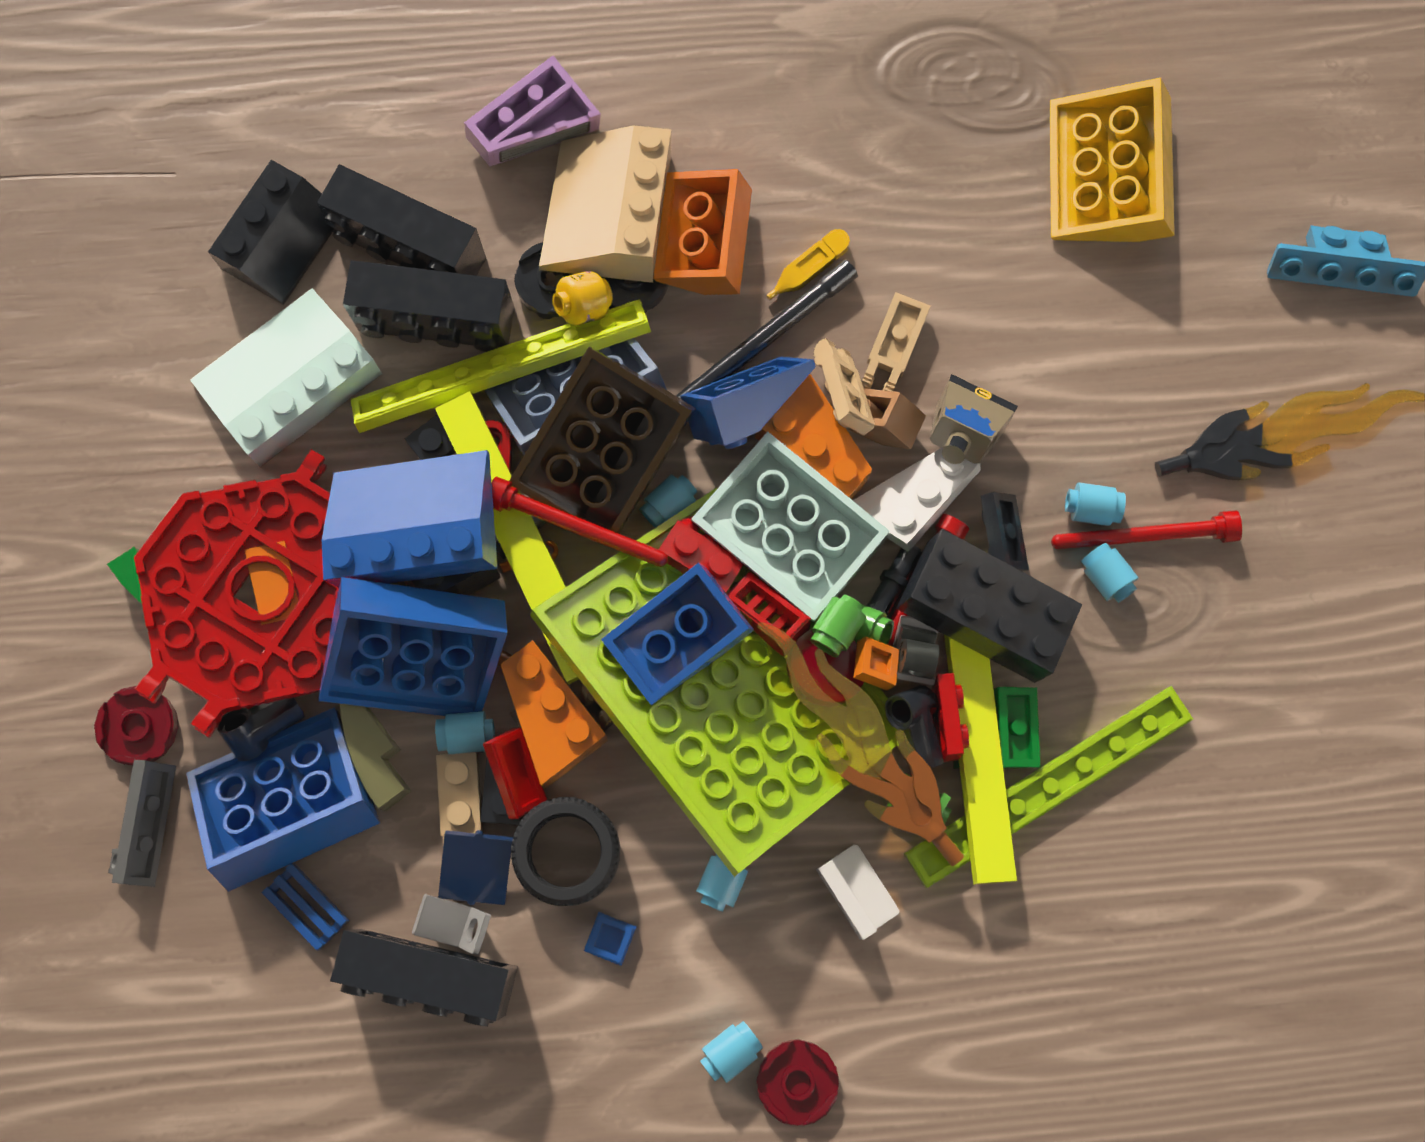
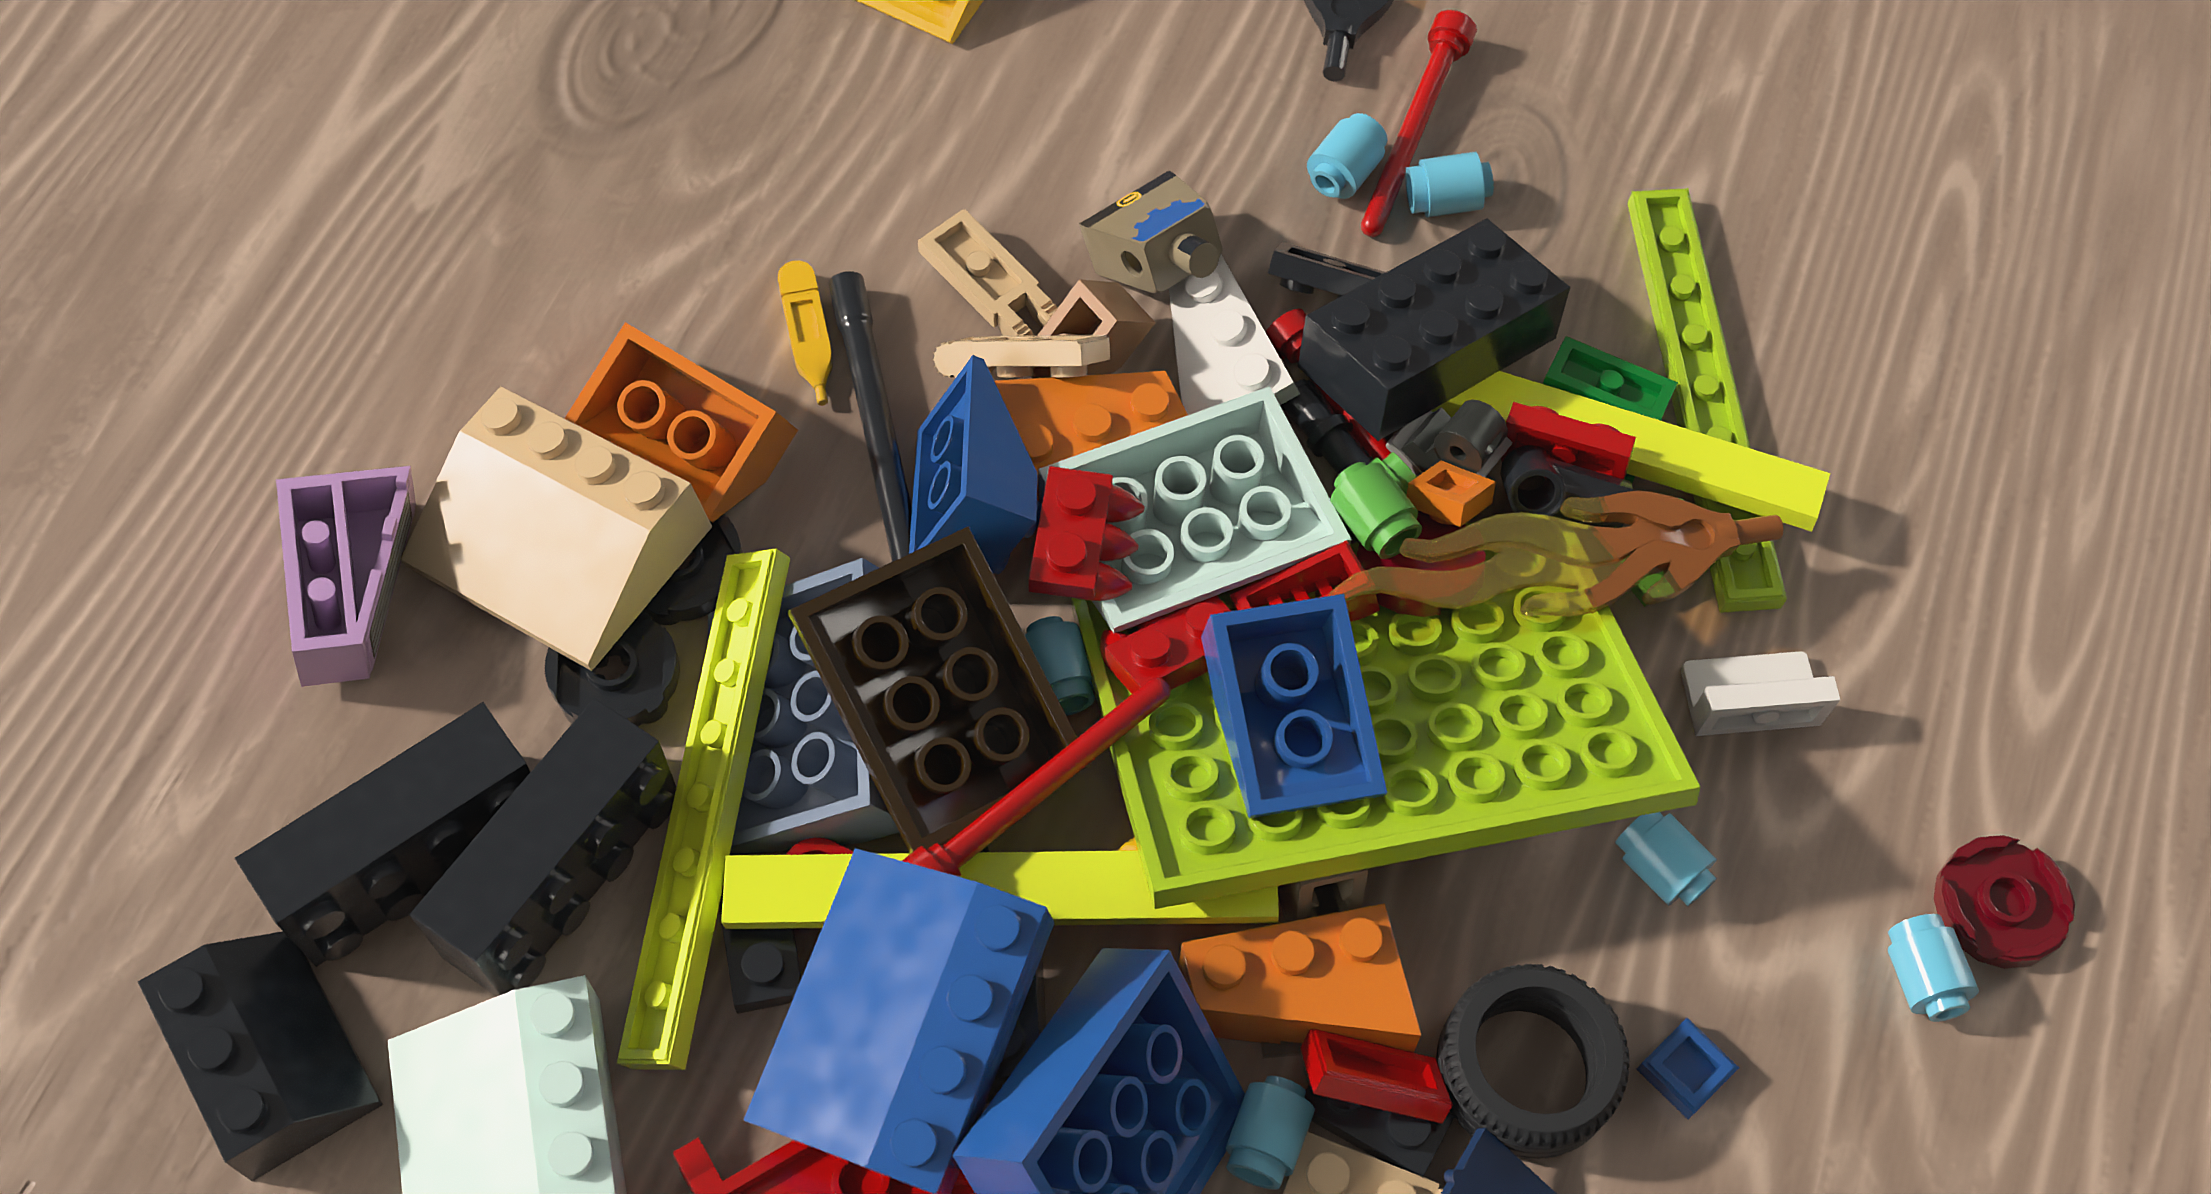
camera: 65 degrees left, 15 degrees down
(582, 298) = (680, 619): yellow head -> none
(734, 472) = (1077, 536): none -> red plate

